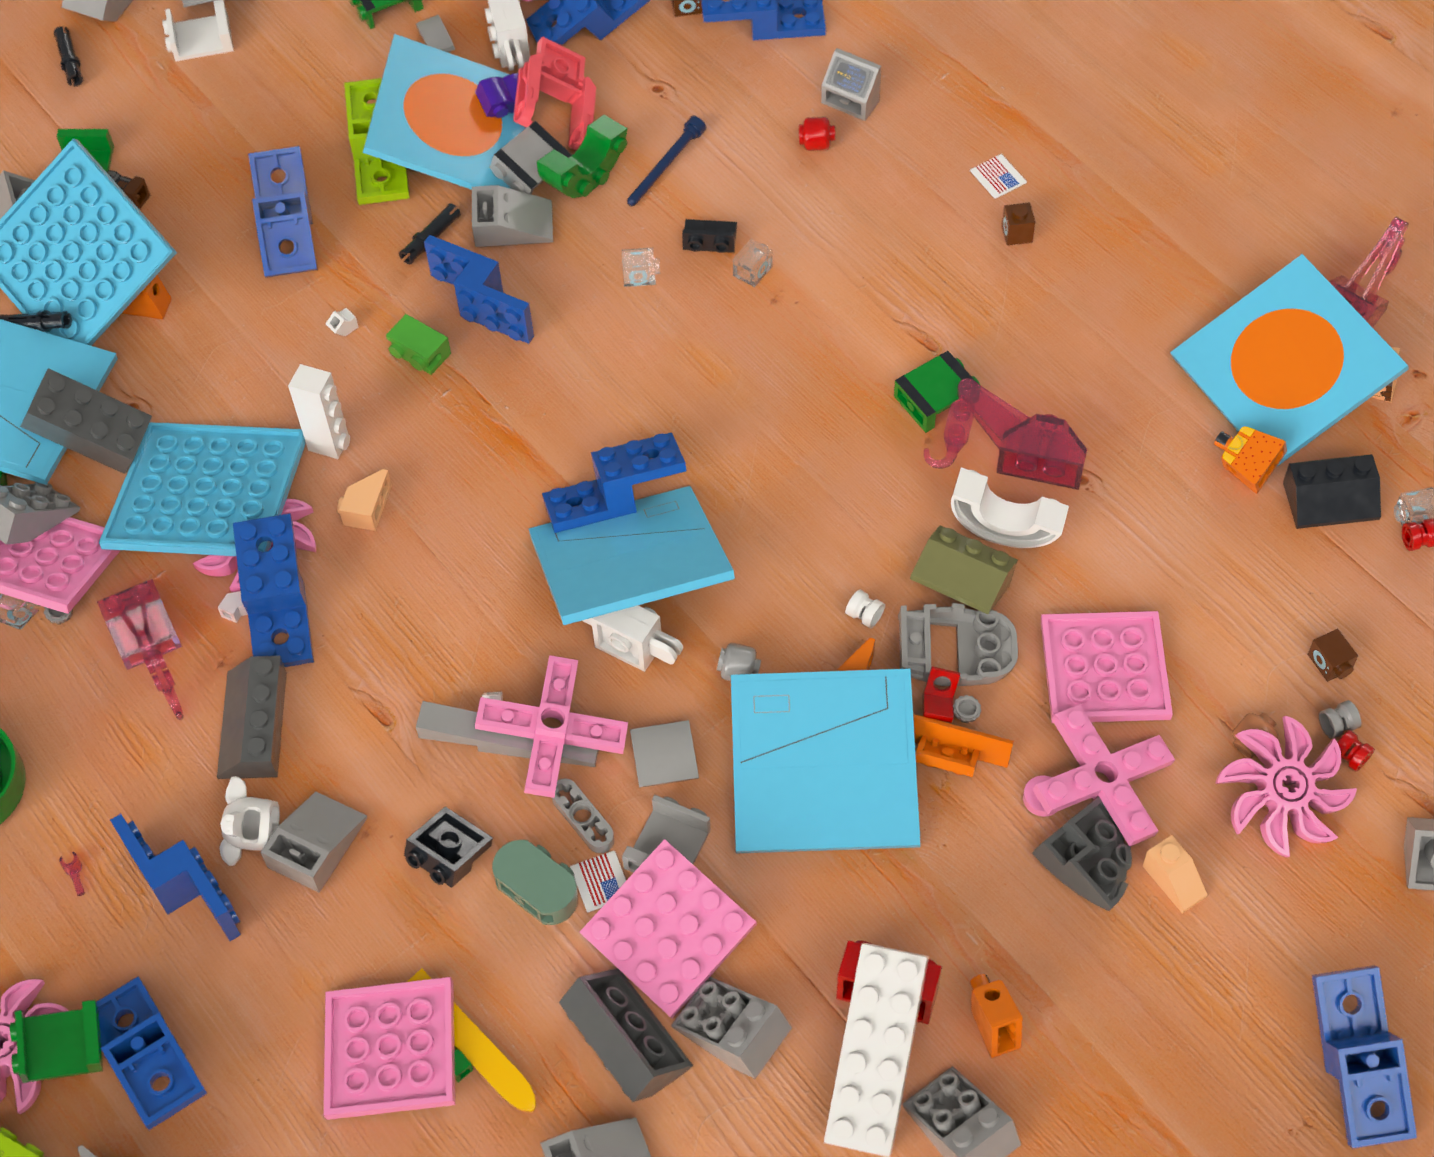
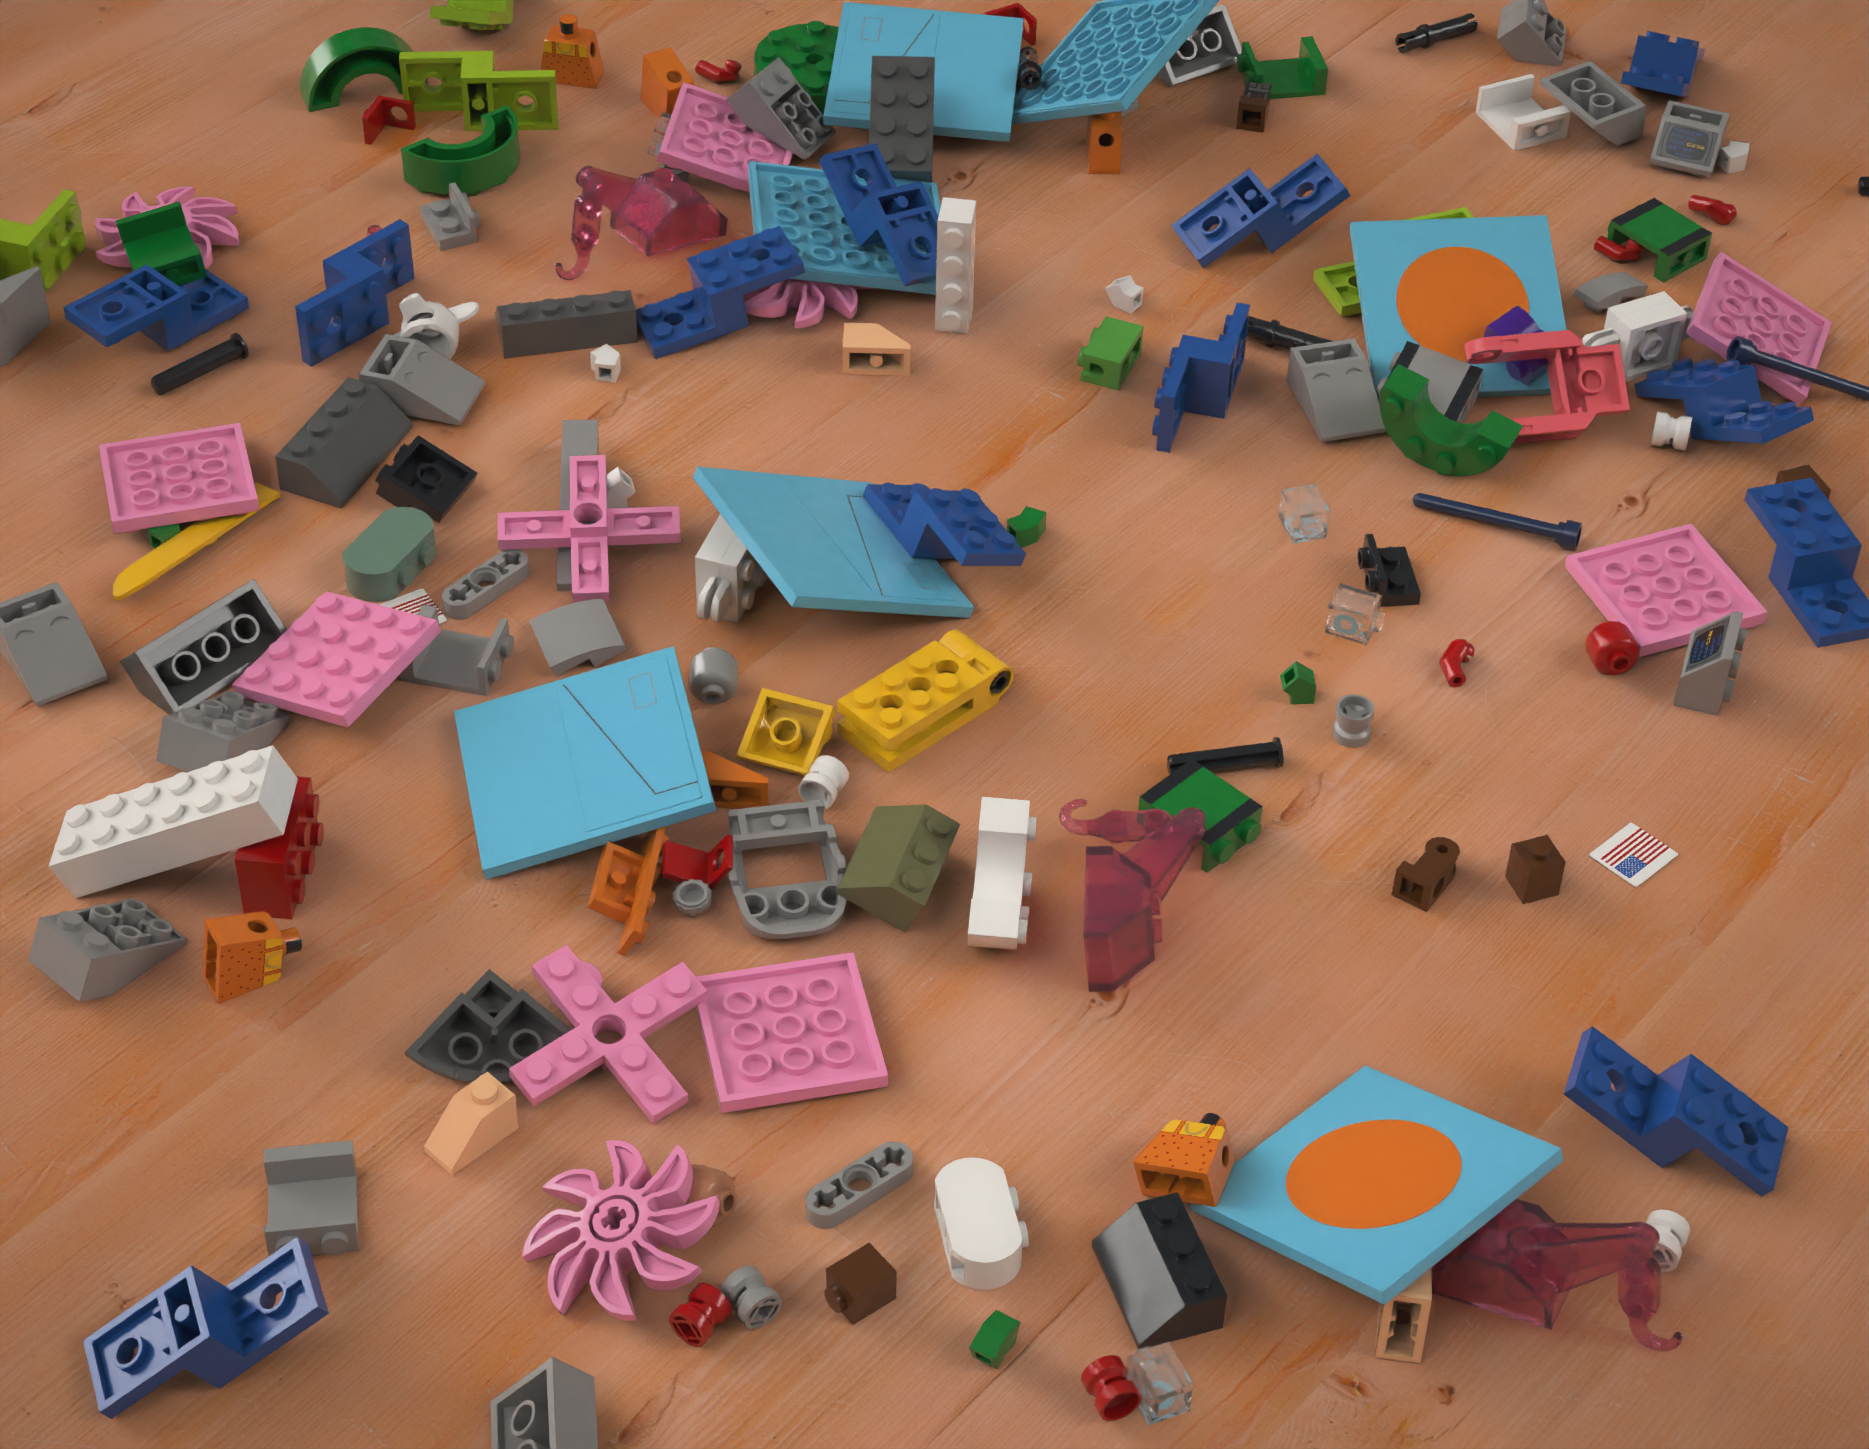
camera: 75 degrees right, 15 degrees down
(66, 797) = (451, 220): none -> light grey bracket
(220, 1025) = (200, 364): none -> black axle
(230, 446) = (885, 211): none -> blue bracket
(320, 695) = (605, 363): none -> white piece
(377, 910) = (342, 444): none -> dark grey slope
(386, 22) = (1617, 252): none -> red arm
(603, 44) = (1671, 431): none -> white wheel
(605, 435) = (1027, 526): none -> green piece
(761, 92) = (1663, 586): none -> bright pink plate
(791, 532) = (922, 699): none -> yellow hinge
(805, 221) = (1451, 660): none -> red arm
(812, 623) = (786, 732): none -> yellow slope
(816, 304) = (1299, 684): none -> green piece
(860, 287) = (1353, 720): none -> light grey wheel
(880, 365) = (1232, 757): none -> black axle
(1009, 279) = (1429, 876): none -> reddish brown leg
(1237, 204) = (1676, 1111): none -> blue bracket
(1237, 989) = (312, 1197): none -> light grey panel
(1242, 633) = (852, 1201): none -> light grey beam
(1287, 582) = (979, 1223): none -> white brick
(1327, 242) = (1673, 1236): none -> white wheel
(1378, 589) = (994, 1339): none -> green piece

